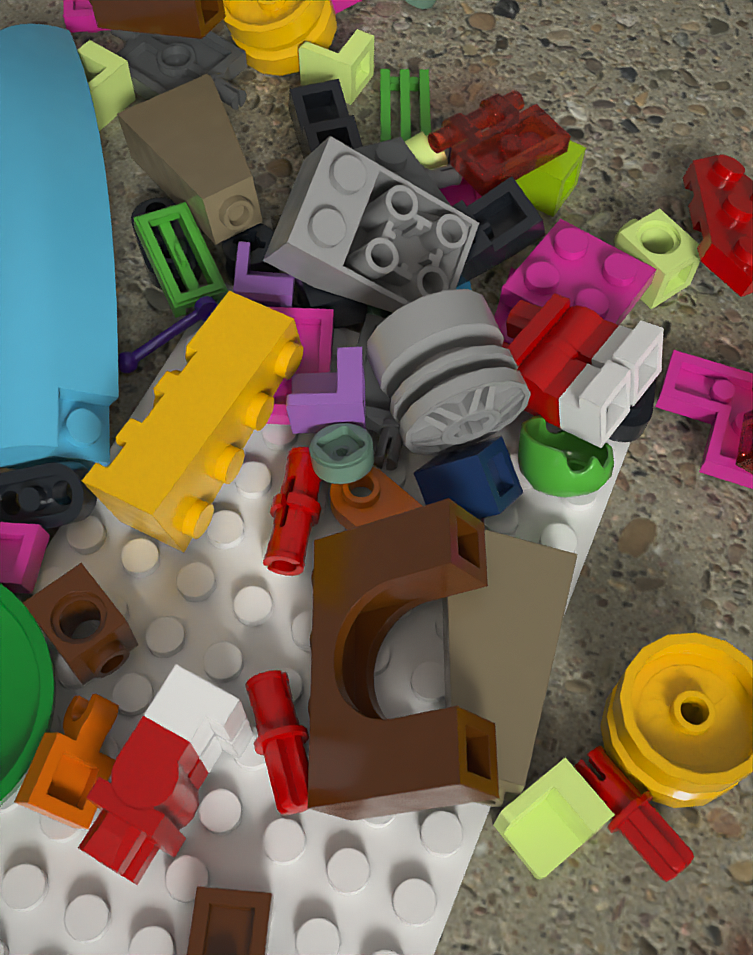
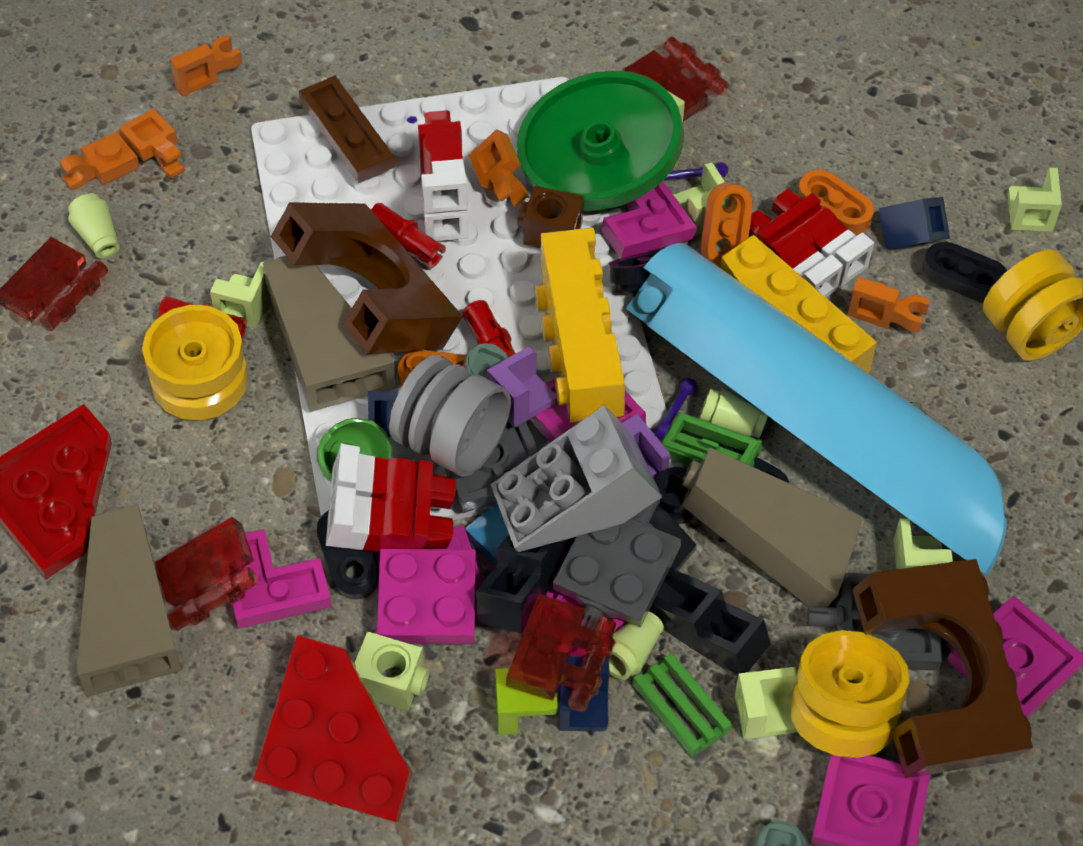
camera: 145 degrees right, 5 degrees down
(133, 301) = (732, 413): none -> yellowish green cone

